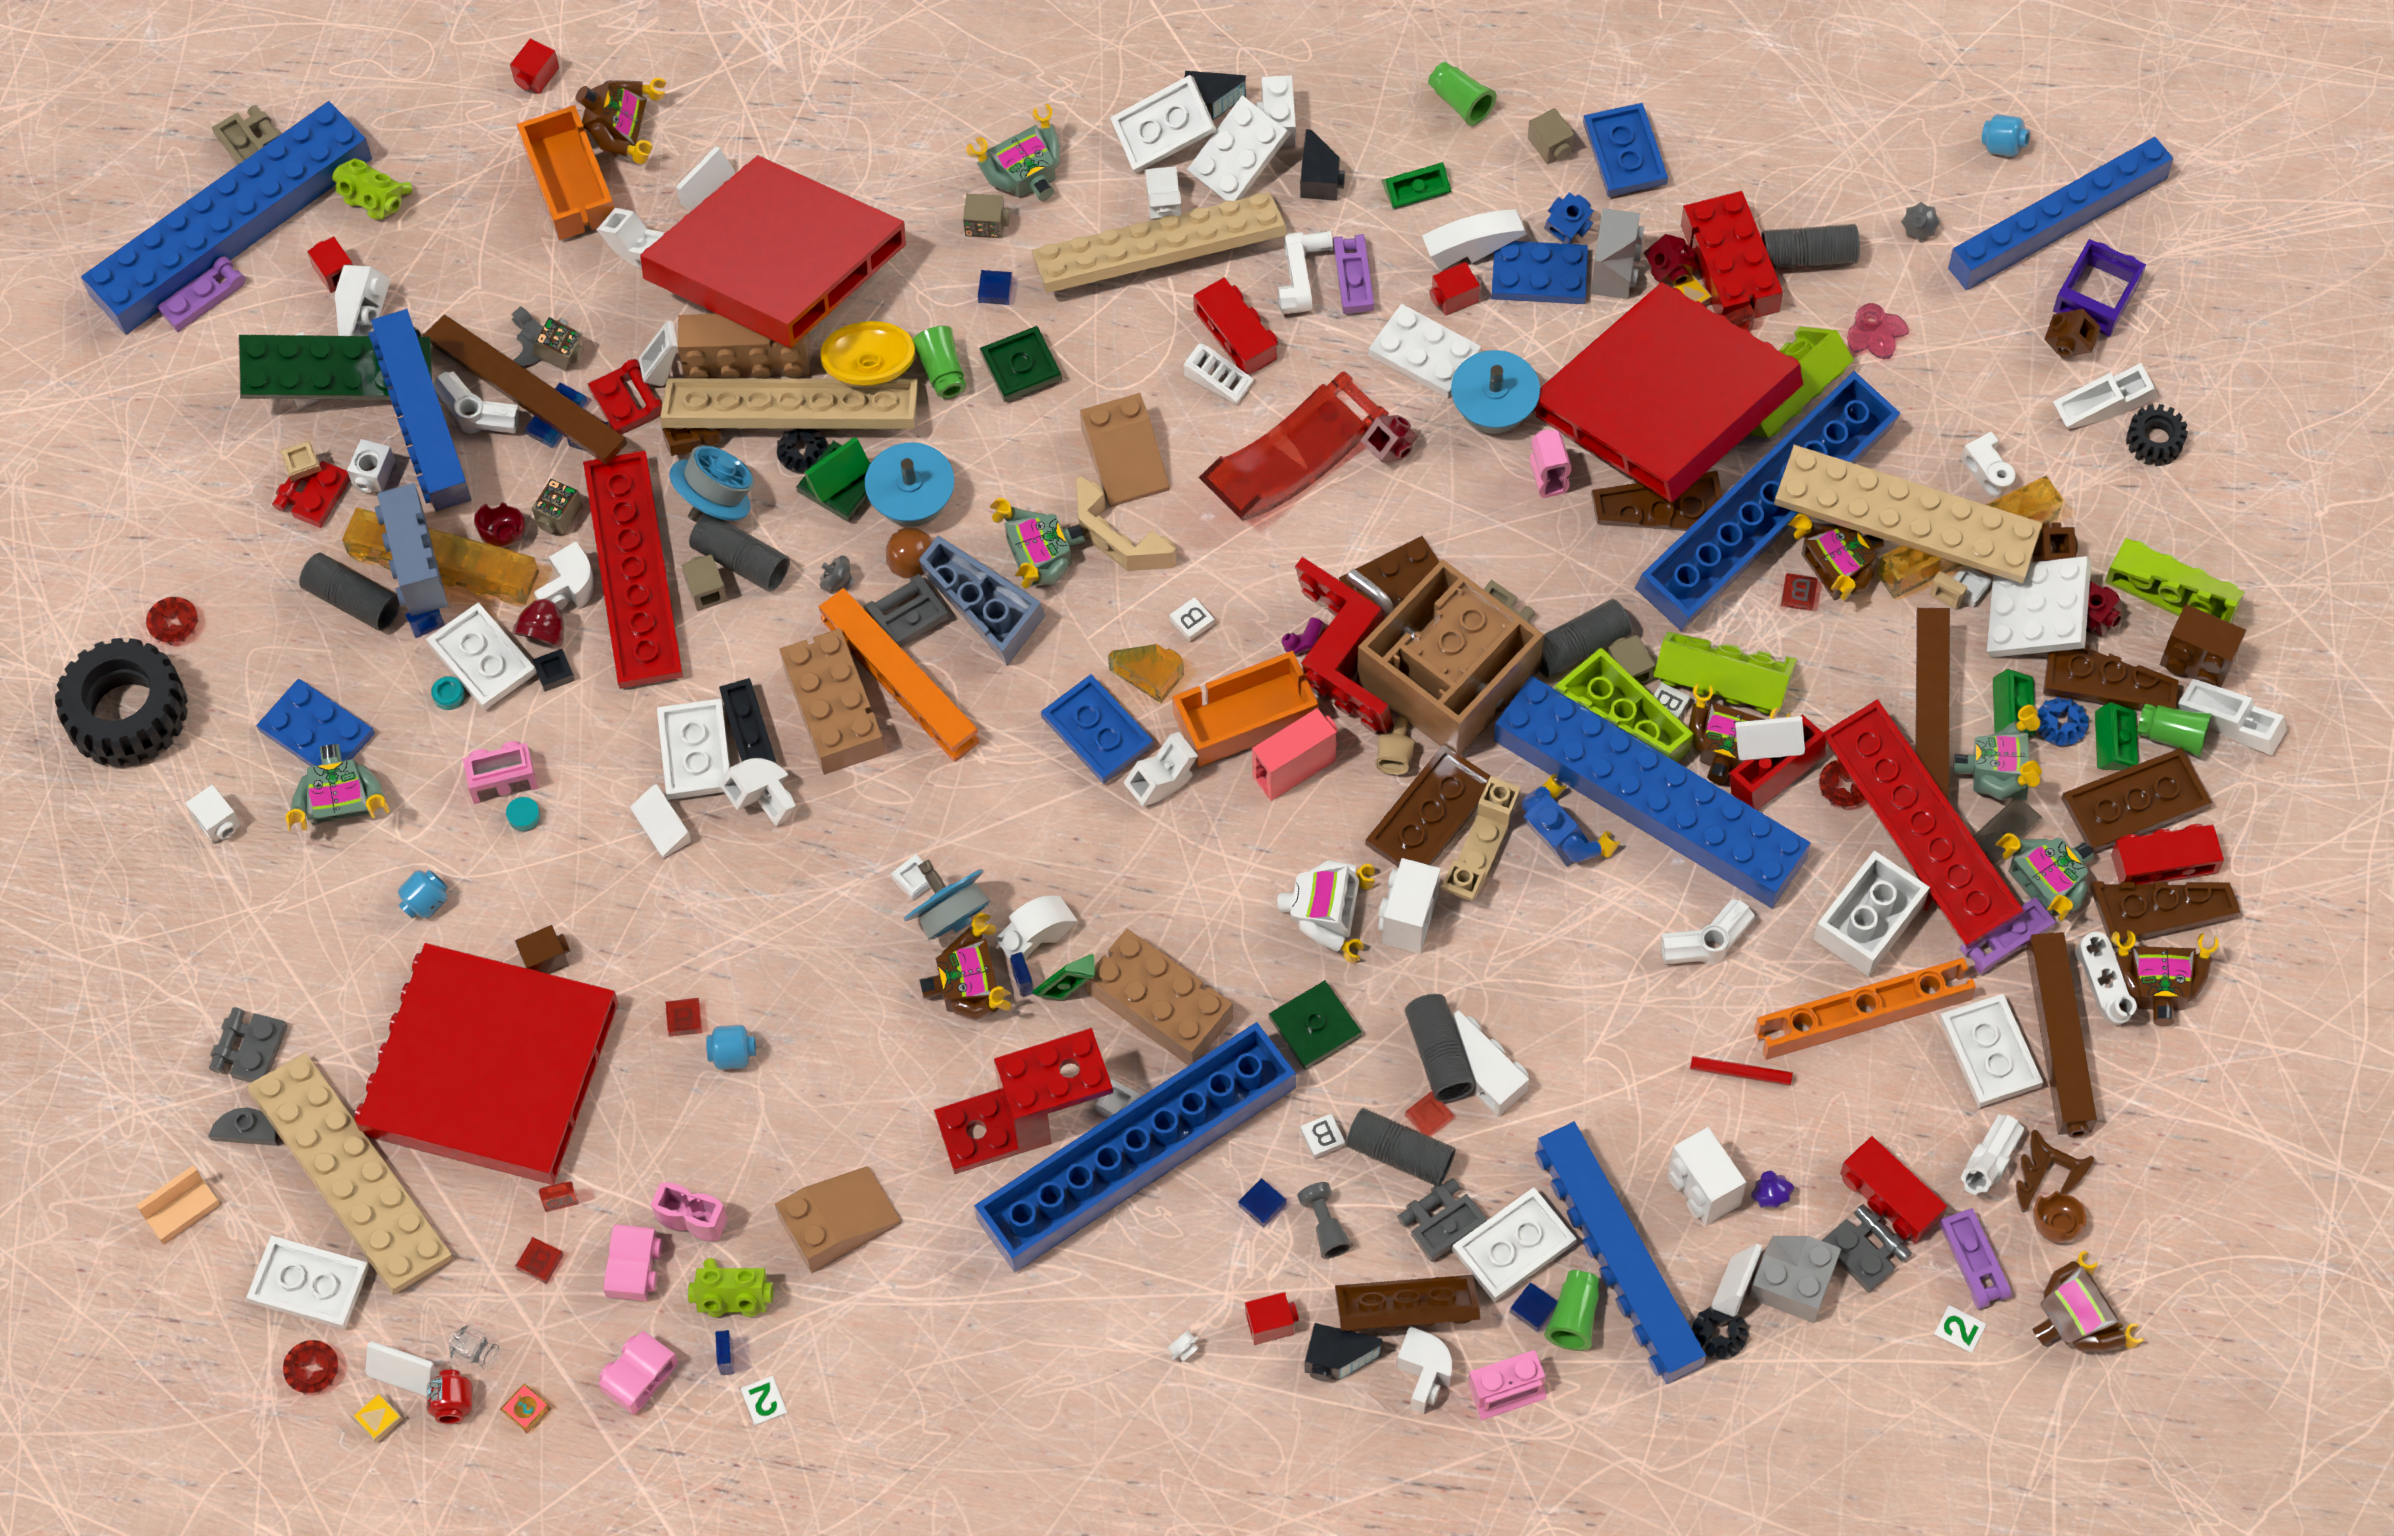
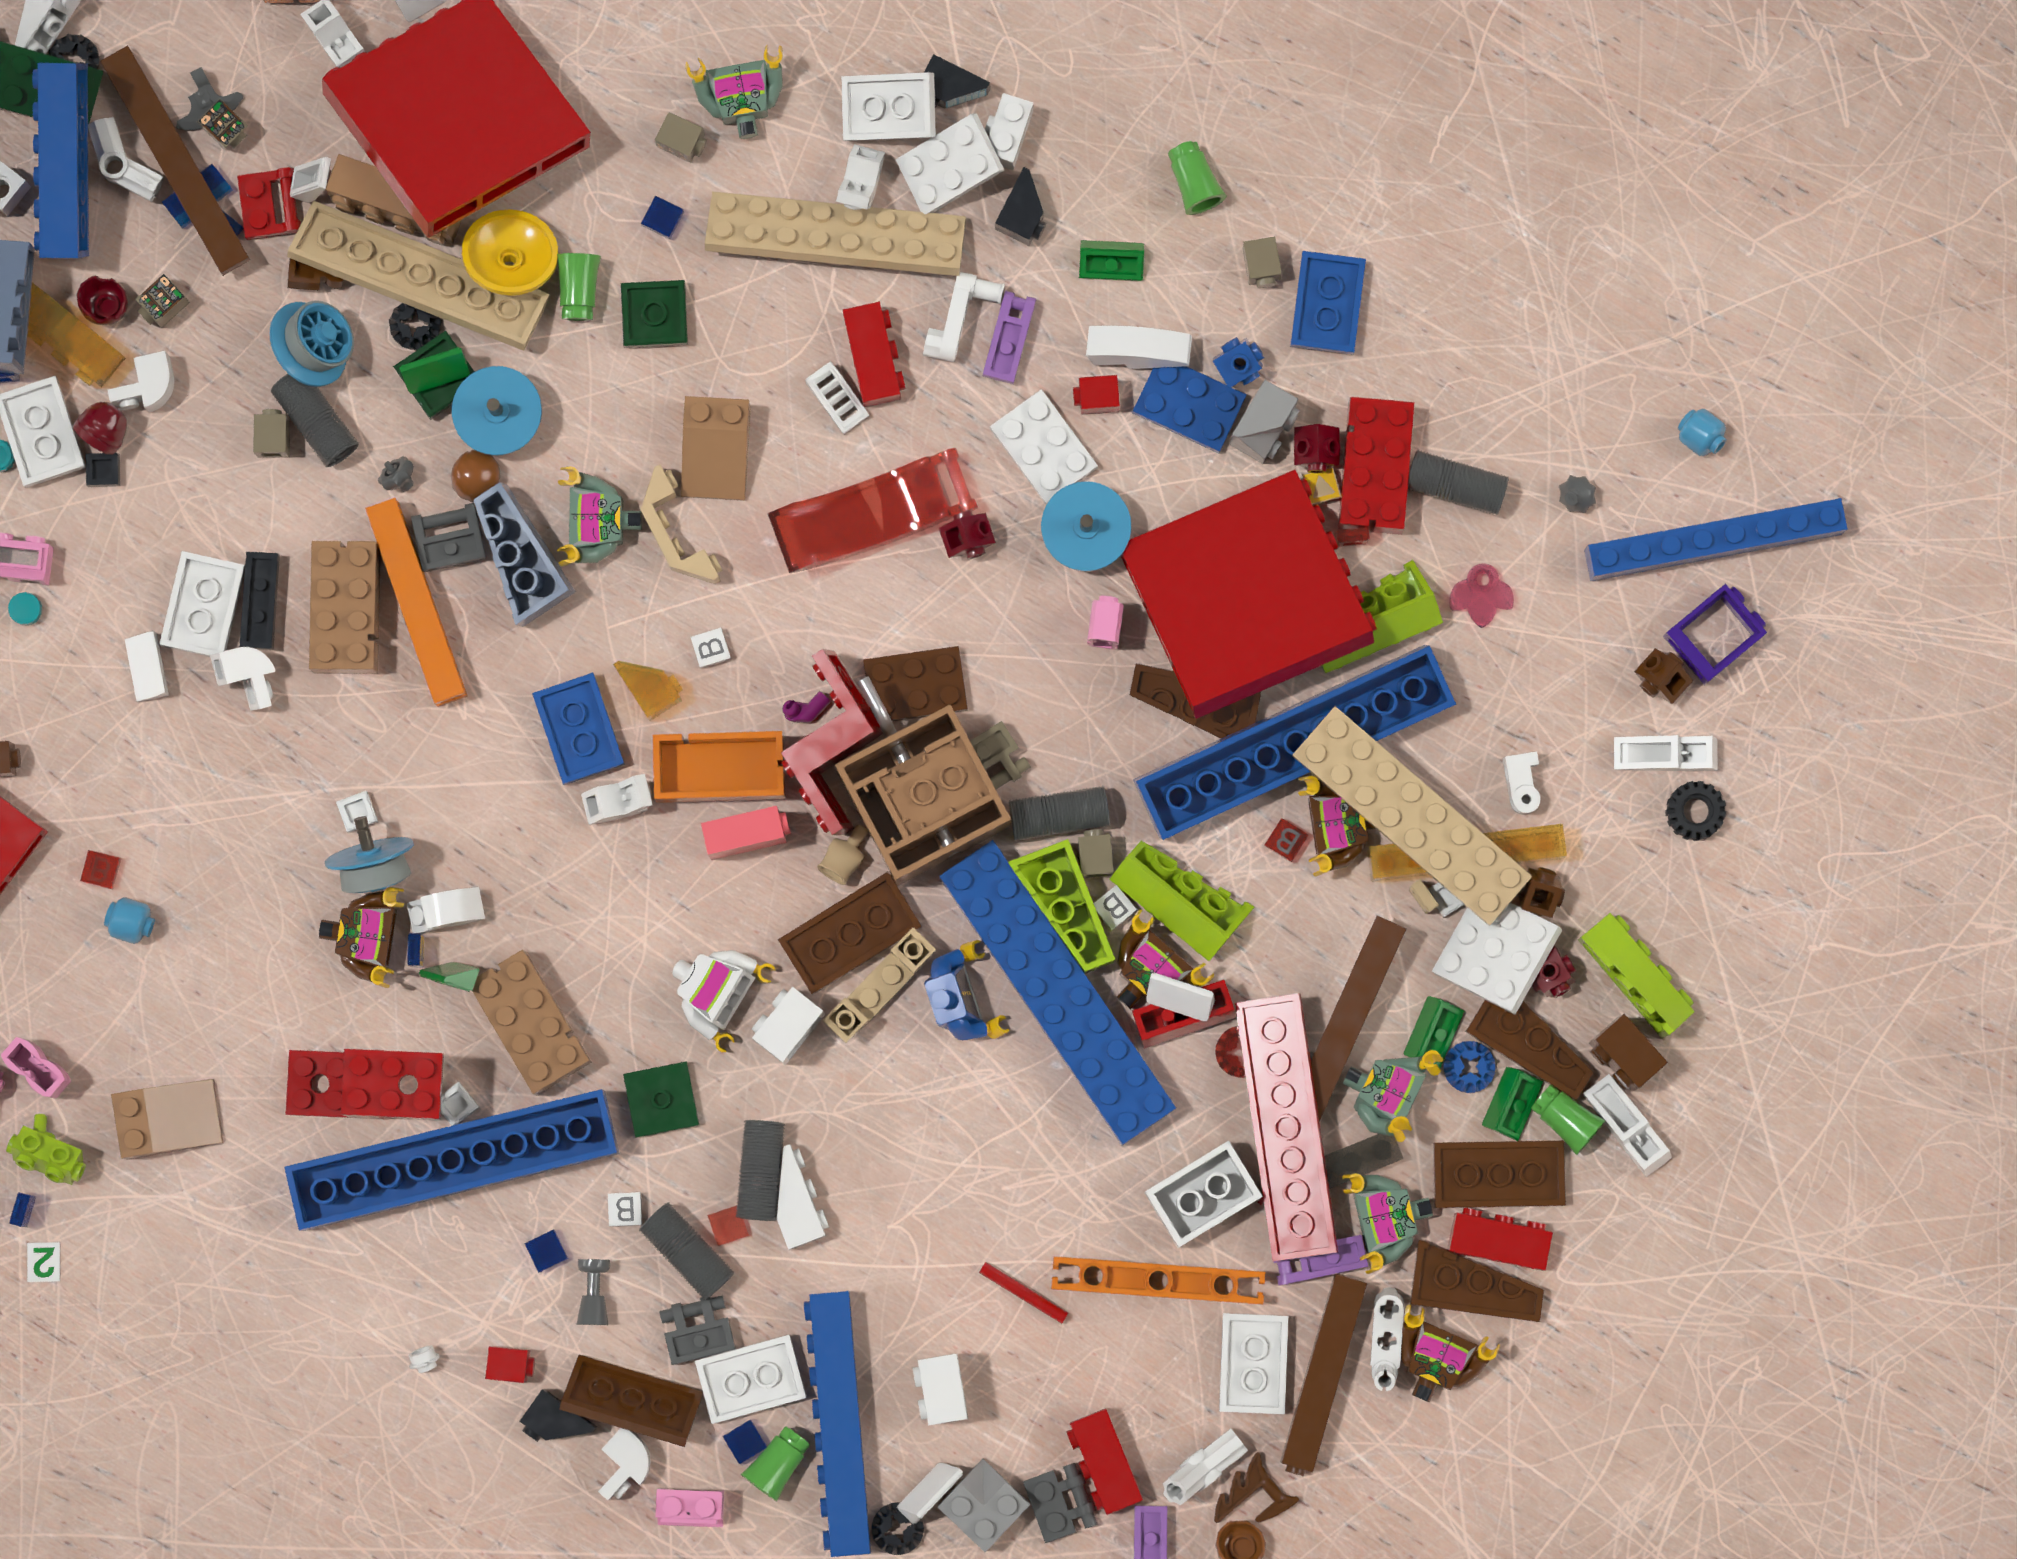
camera: 20 degrees right, 20 degrees up
(633, 570) = (211, 394): red plate -> none
(1725, 930) = (1068, 1153): white piece -> none
(1772, 1190) = (999, 1420): dark purple piece -> none

